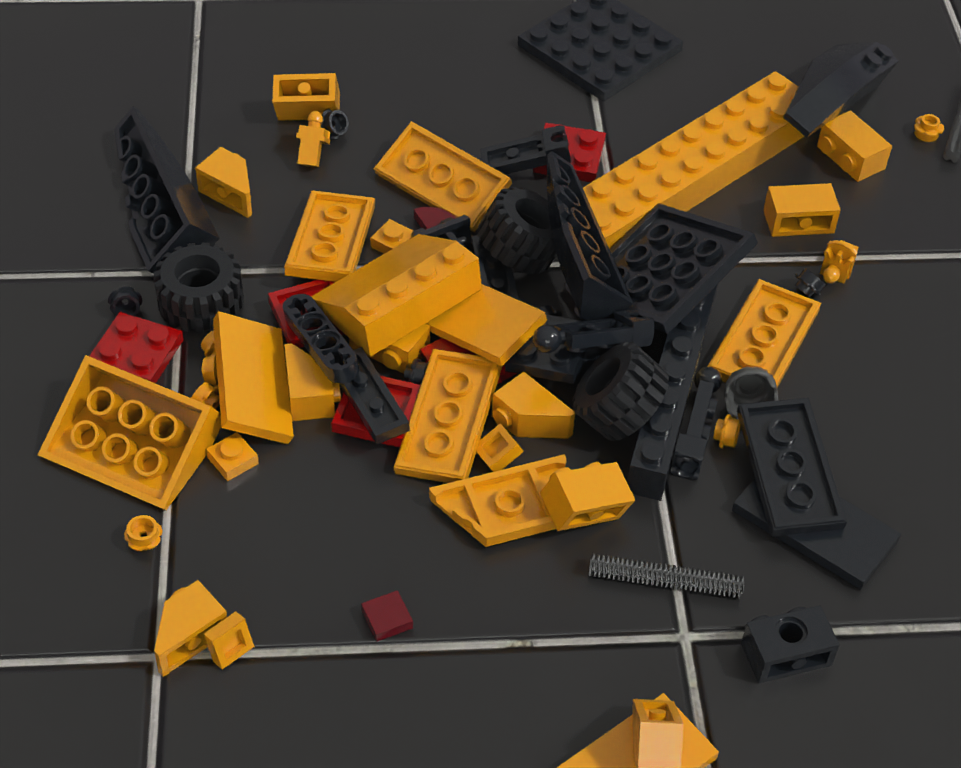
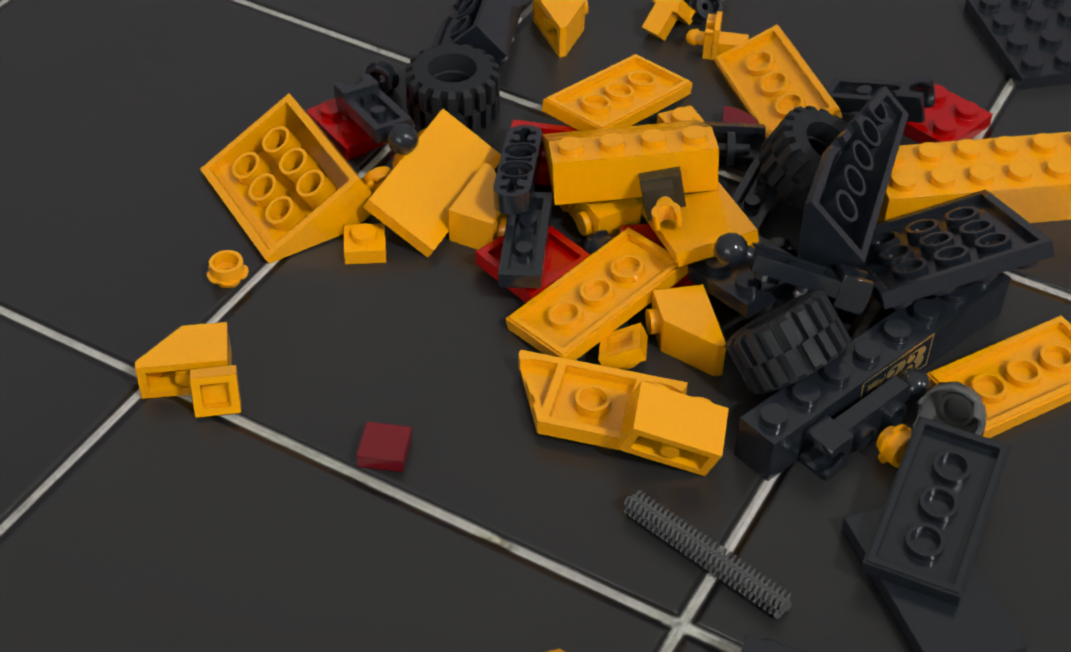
camera: 35 degrees right, 5 degrees down
(169, 340) = (376, 114): none -> black plate
(363, 151) = (713, 39): none -> light orange piece
(451, 316) = (663, 195): none -> pearl dark grey piece

